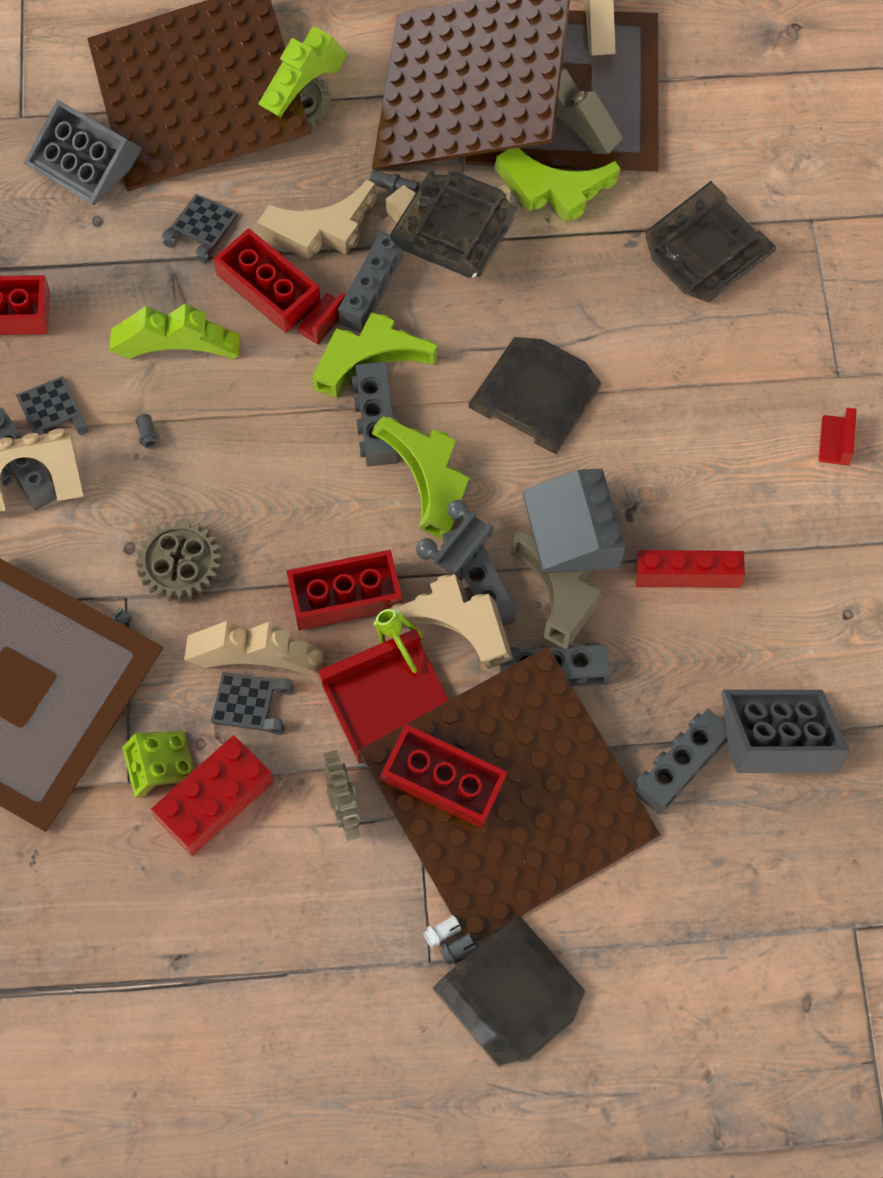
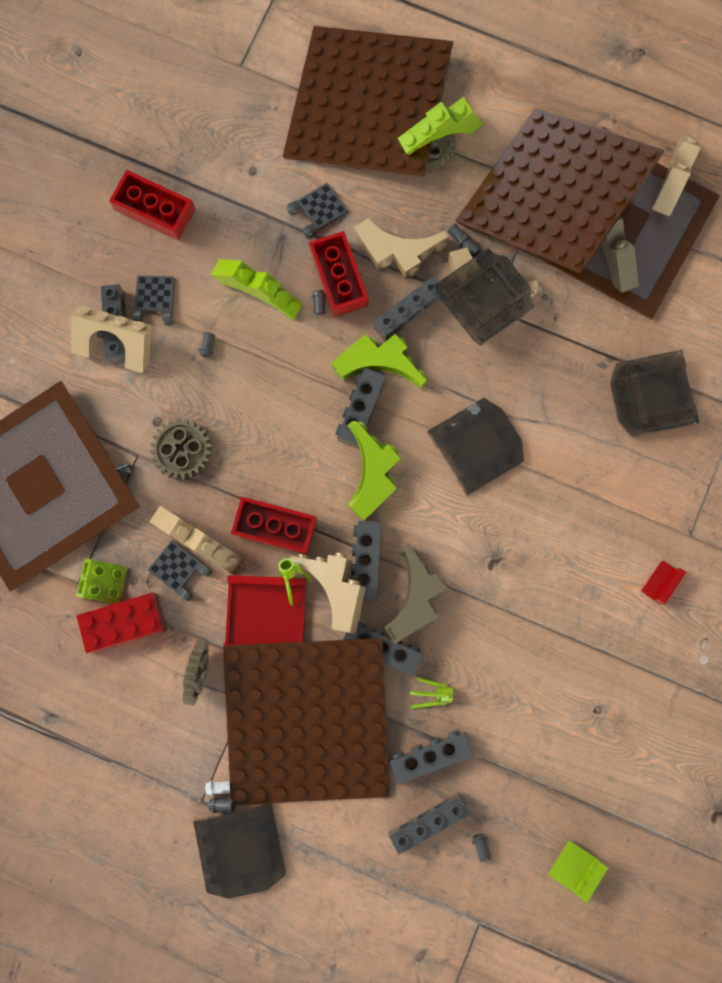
camera: 30 degrees right, 15 degrees up
(81, 153) = (264, 116): dark grey slope -> none
(258, 322) = (319, 302): none -> dark grey pin
(321, 318) = (362, 318): red panel -> none
(443, 775) = (264, 697): red brick -> none
(462, 543) = (364, 537): dark grey gear -> none
(564, 190) = (577, 305): lime arch -> none
(574, 523) = (447, 558): slope -> none
(655, 682) = (443, 694): none -> lime plant
(689, 568) = (509, 627): red brick -> none
(725, 837) = (428, 823): none -> dark grey brick
(782, 731) = (505, 774): dark grey slope -> none
(804, 834) = (480, 843): none -> dark grey pin

